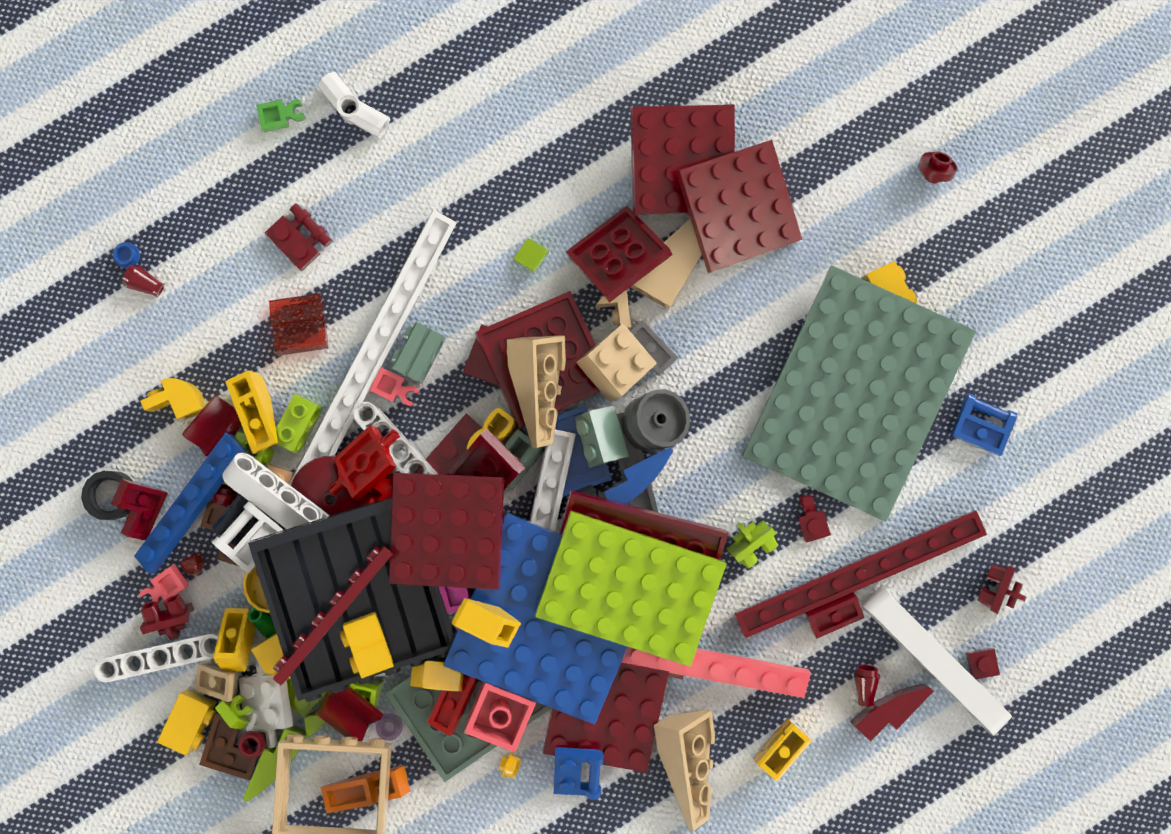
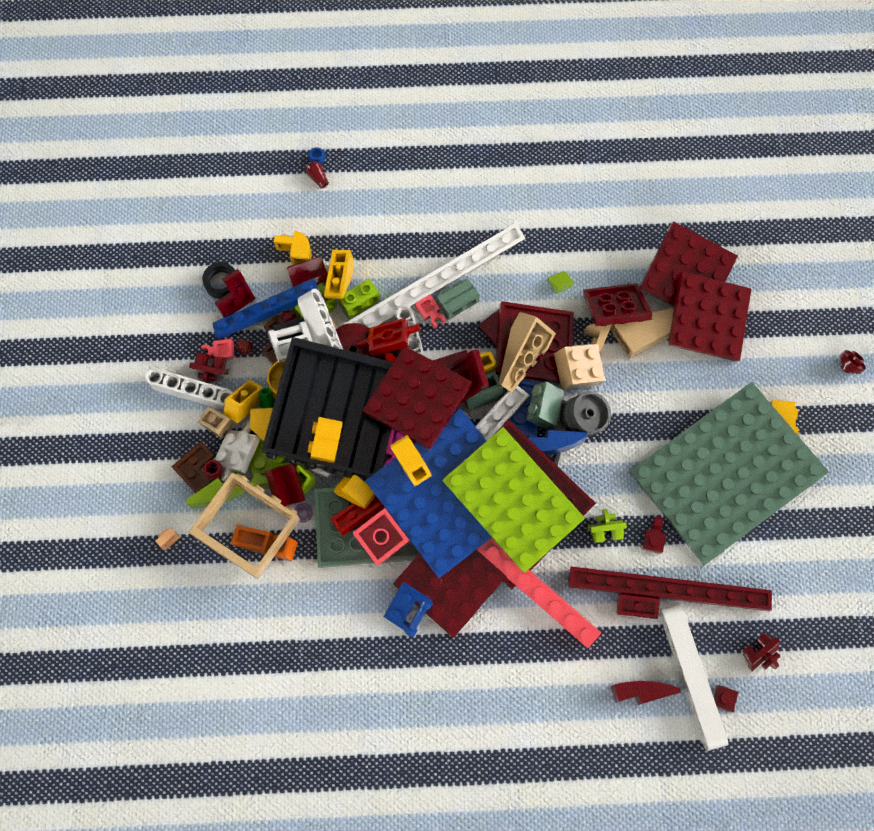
camera: 30 degrees right, 15 degrees down
(187, 722) = (180, 437): yellow brick -> none
(232, 714) = (214, 444): lime tile -> none
(275, 114) = (452, 126): bright green plate -> none
(293, 243) = (418, 198): dark red plate -> none
(298, 324) = (394, 246): clear red slope -> none
(323, 622) = (307, 408): dark red plate -> none
(341, 97) = (502, 152): white piece -> none
(510, 766) = (365, 581): yellow plate -> none
(655, 347) = (612, 381): flat silver plate -> none
(684, 750) = (486, 641): tan wedge -> none
(782, 749) = (554, 672): yellow brick -> none
(866, 683) = (636, 663): dark red cone -> none
(981, 432) = (800, 543): blue plate -> none

